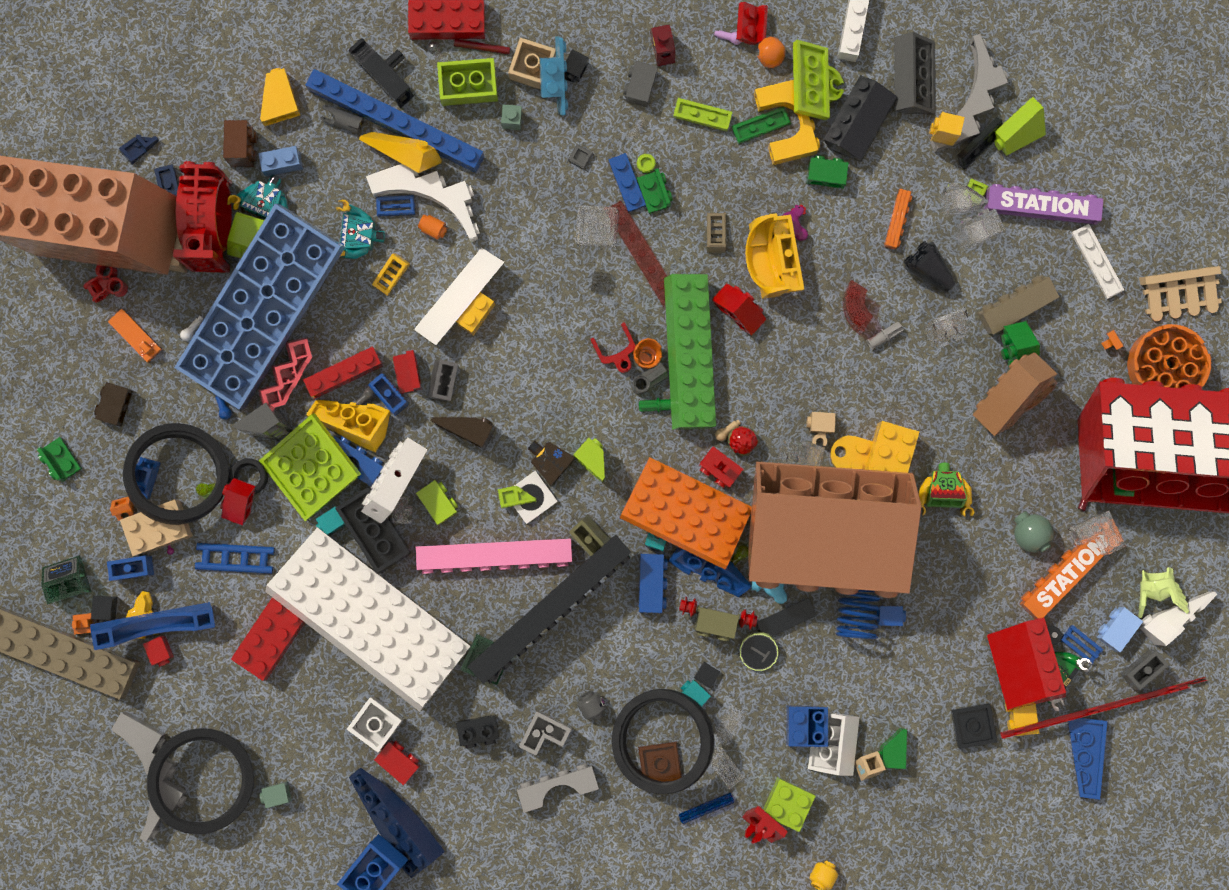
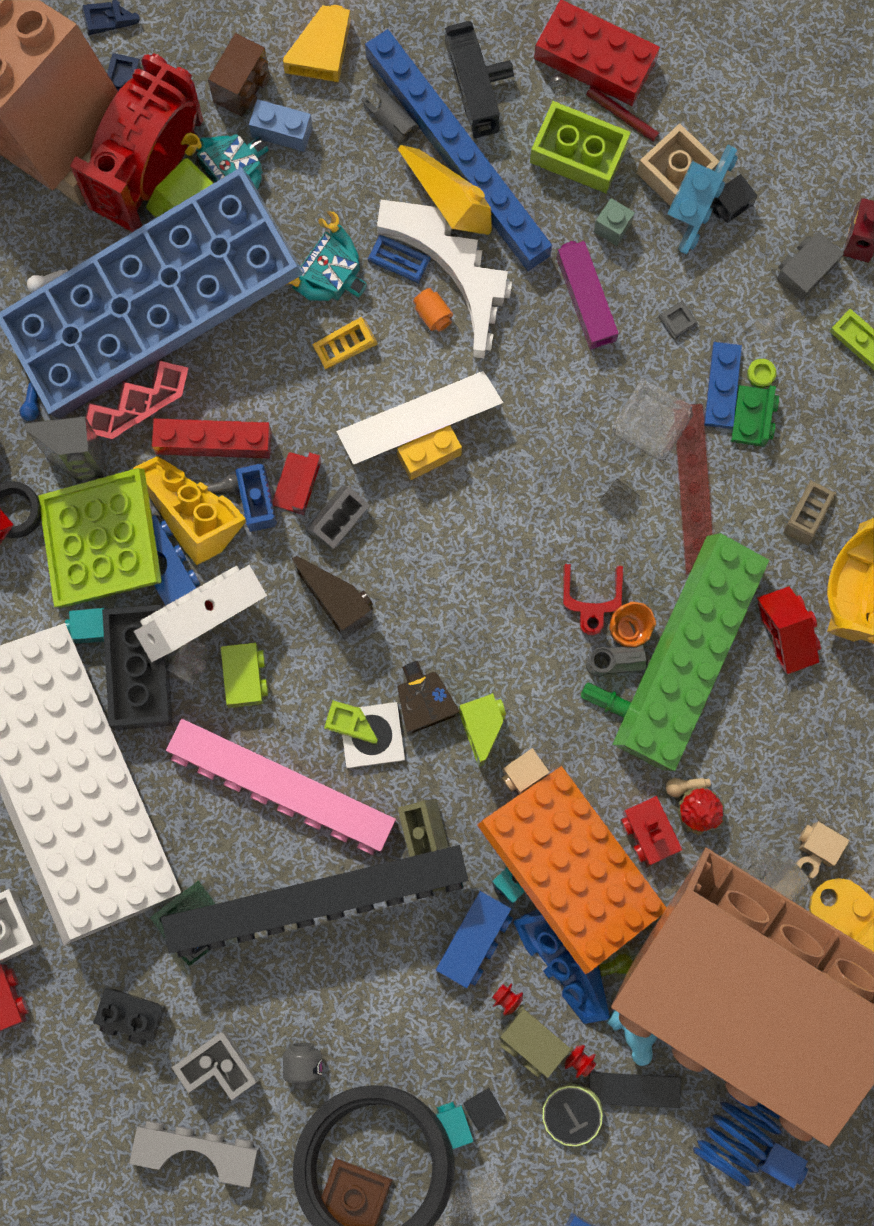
camera: 30 degrees right, 5 degrees down
(518, 169) = (586, 294): none -> magenta brick
(630, 472) = (524, 772): none -> tan brick

